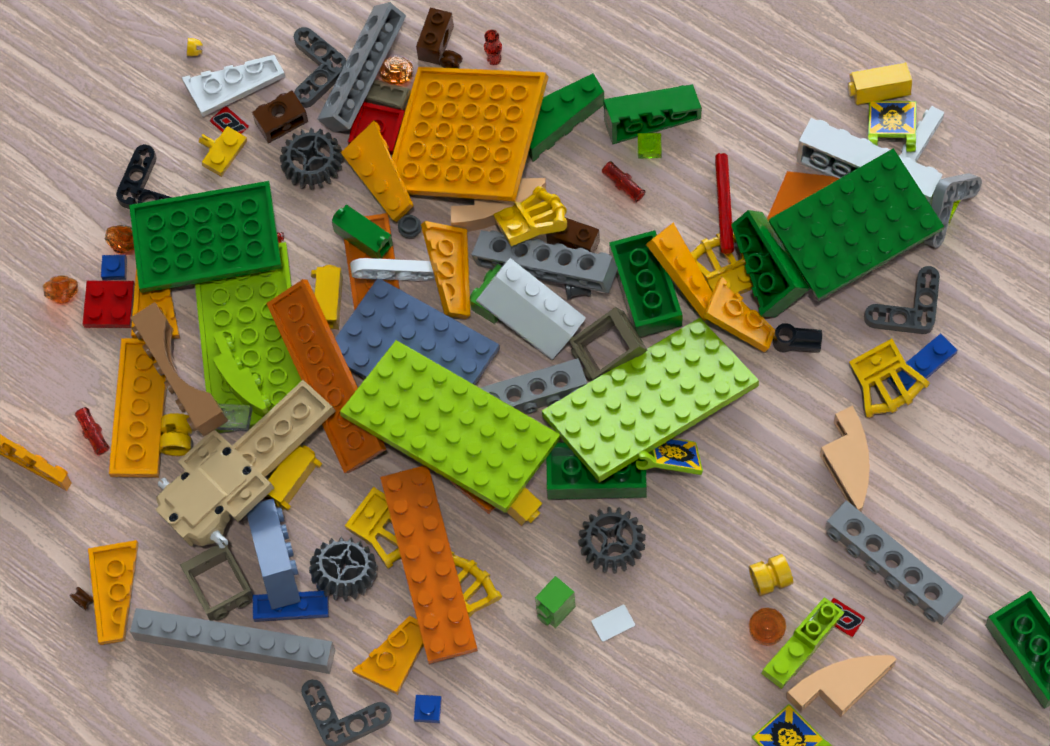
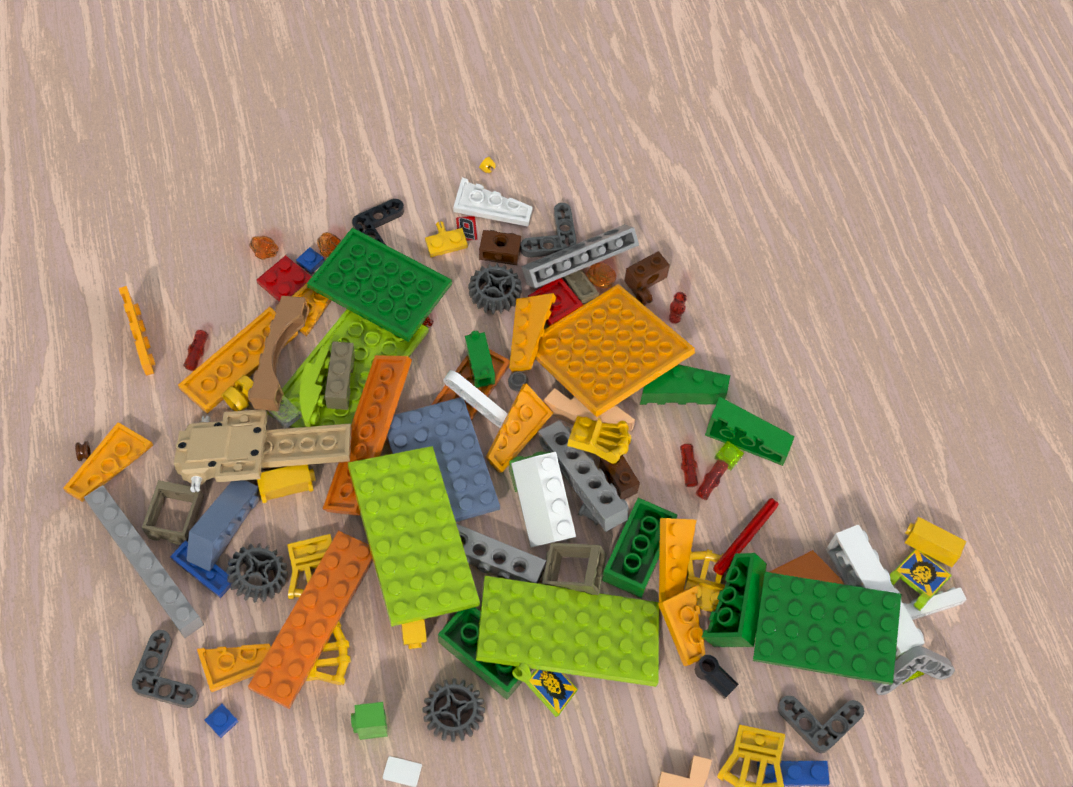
camera: 30 degrees right, 5 degrees down
(253, 345) = (338, 380): none -> dark tan arch
(329, 292) = (422, 384): yellow brick -> none
(653, 178) = (712, 479): none -> clear red pin

